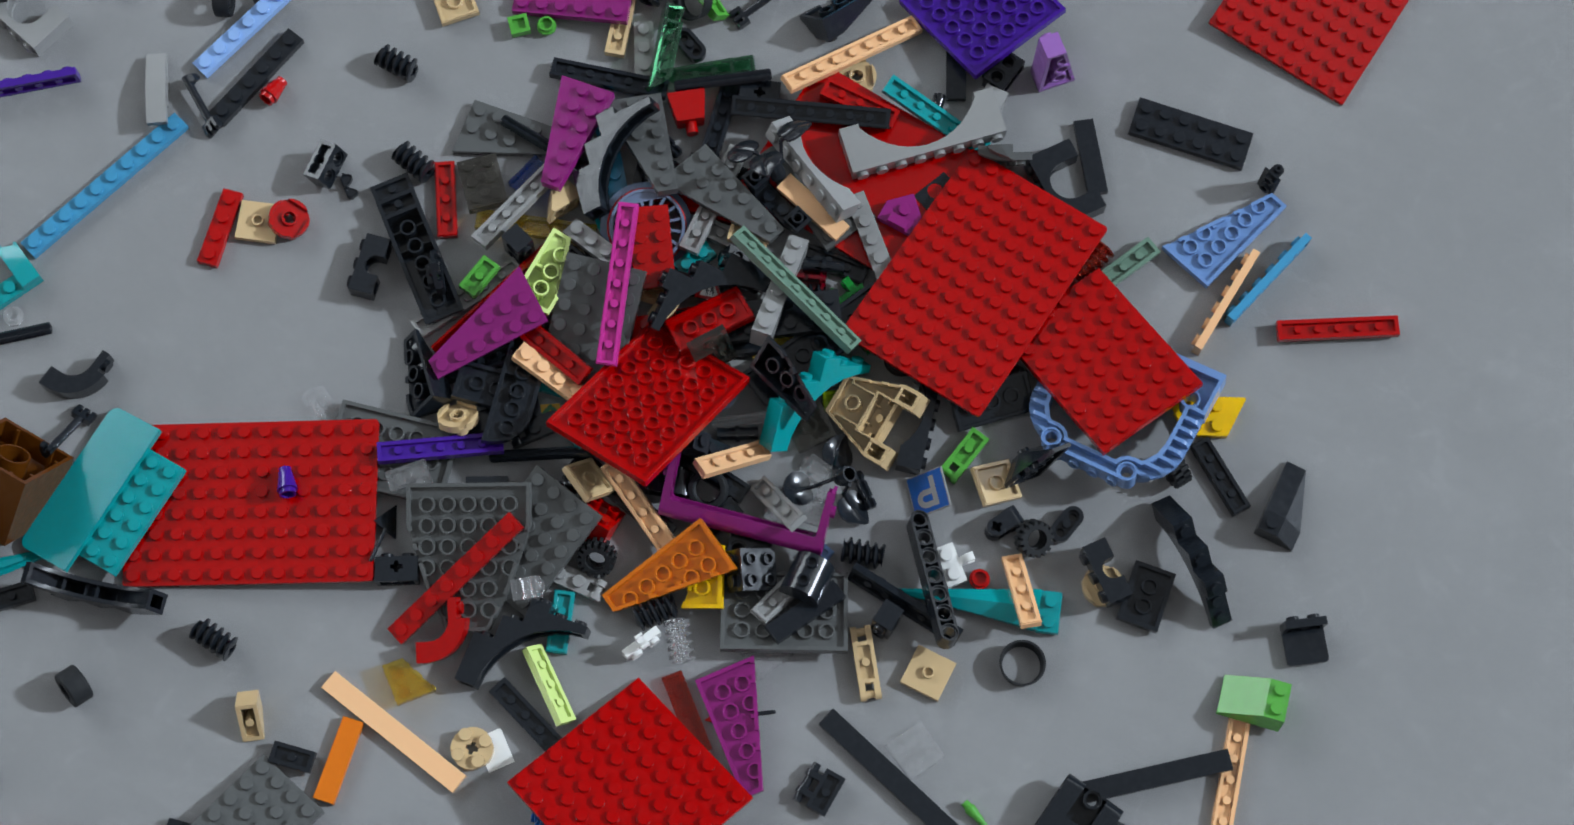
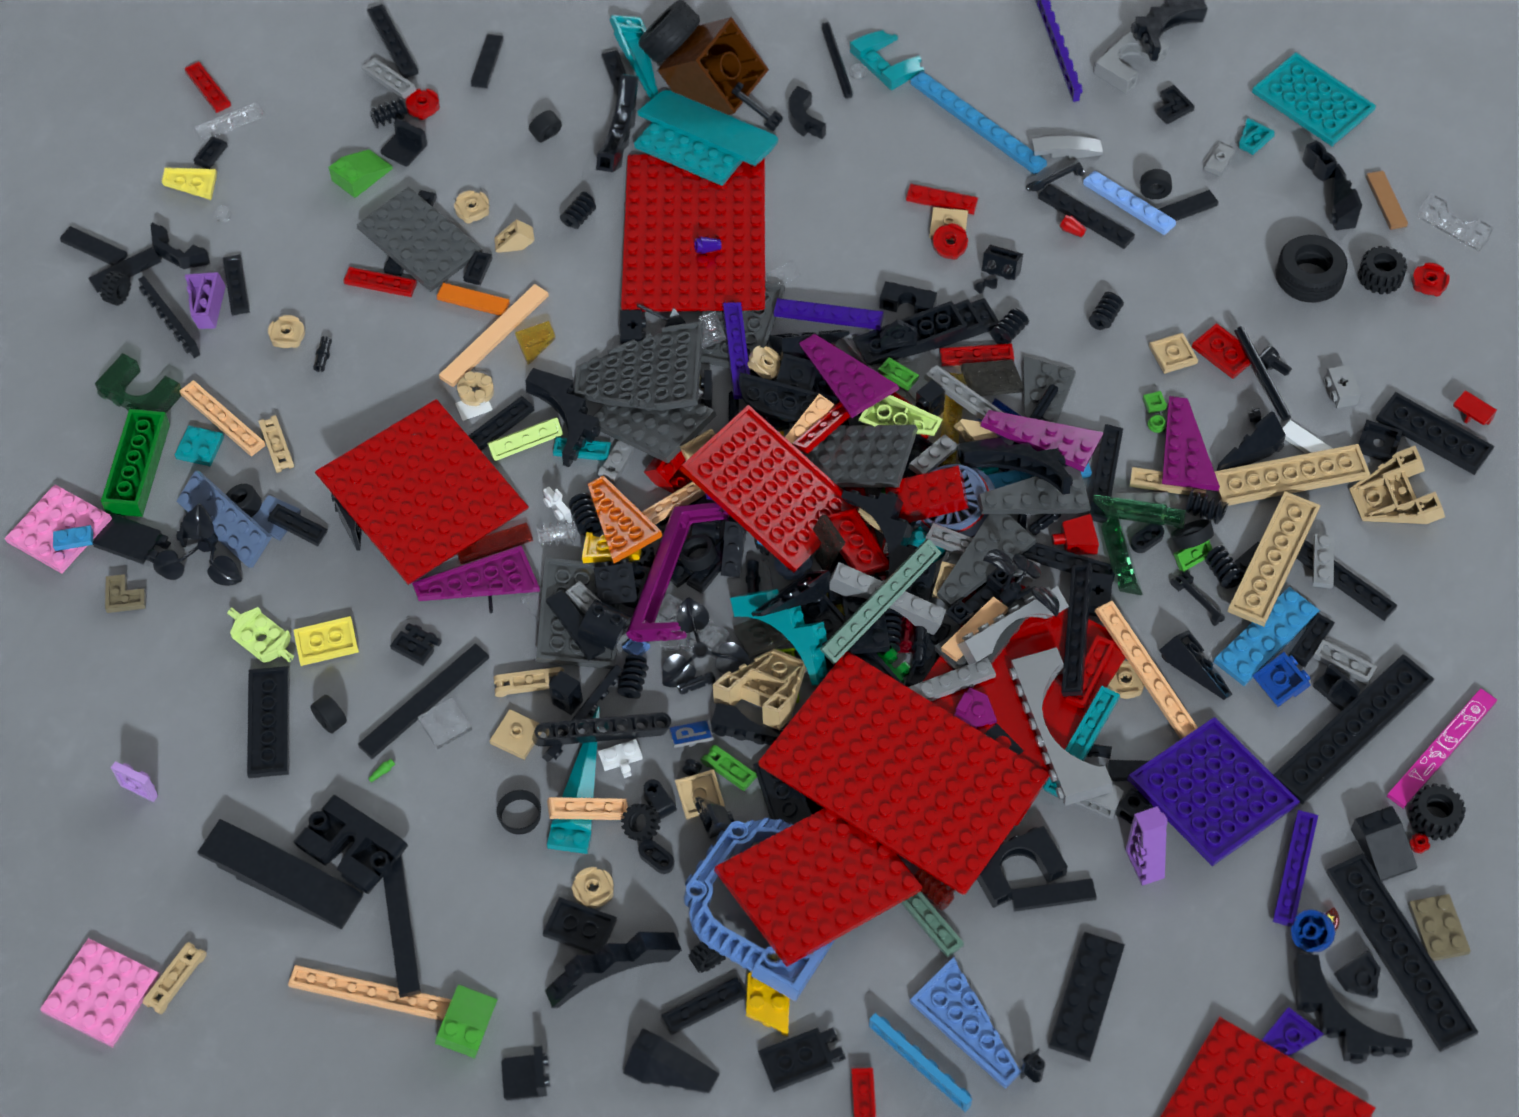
camera: 95 degrees right, 15 degrees down
(204, 776) = (475, 213): none -> tan plate
(391, 349) = (828, 314): none -> dark purple plate
(450, 640) = (572, 366): red arch -> none
(455, 578) = (619, 363): red plate -> none
(527, 588) = (606, 412): clear brick -> none
(594, 567) = (635, 467): black tyre -> none
(617, 284) = (883, 459): dark pink tile -> none
(723, 80) = (1107, 558): black axle -> none
(731, 459) = (721, 564): light nougat plate -> none
(778, 503) = (673, 600): light grey tile -> none
(966, 491) = (692, 767): none -> black bush
(979, 579) = (605, 779): red plate -> none
(1004, 154) = (1043, 800): dark grey plate -> none
(1110, 589) = (616, 873): black arch -> none
(1220, 308) = (900, 1021): light nougat plate -> none
(1268, 387) = (800, 1058): none -> black tile

